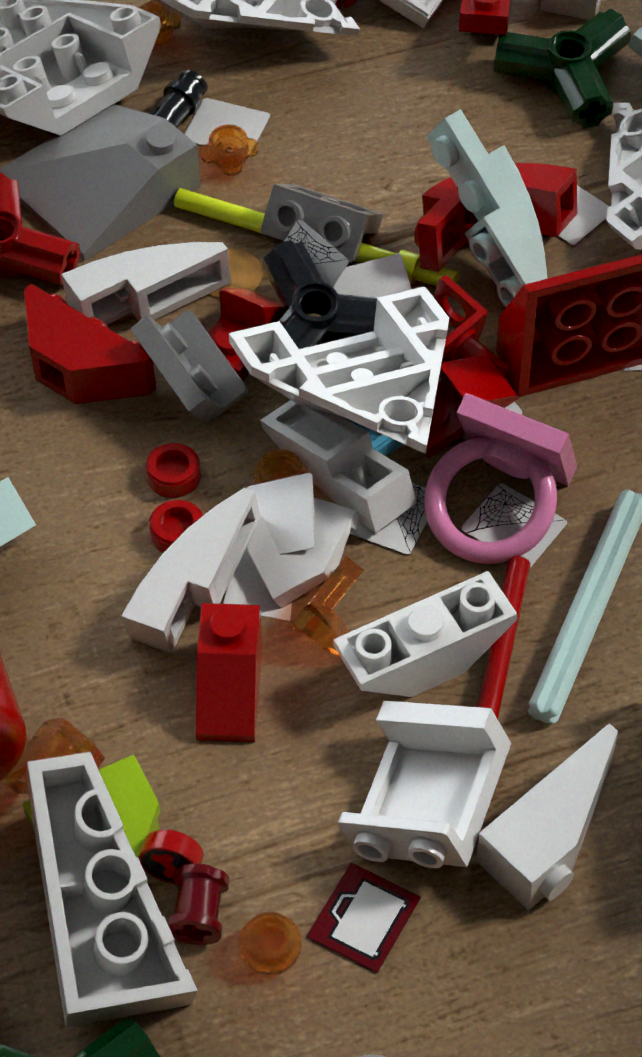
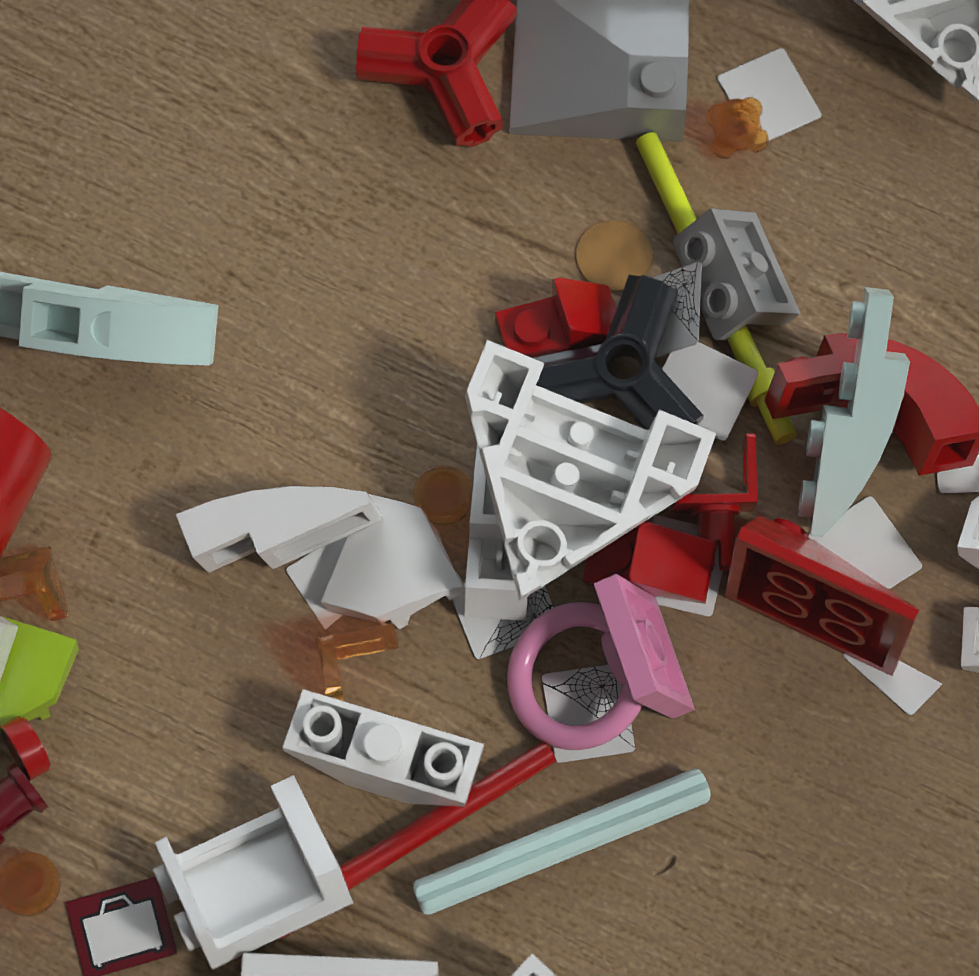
camera: 45 degrees right, 15 degrees up
(81, 354) = (399, 227): red slope -> none
(147, 280) = (519, 207): white slope -> none
(170, 521) = (320, 462): red tile -> none
(173, 470) = (370, 408): red tile -> none
(181, 97) = (737, 39): black pin -> none
(192, 364) = (457, 319): light grey bracket -> none
(228, 672) = (218, 635): red slope -> none
(288, 512) = (404, 536): white sticker -> none

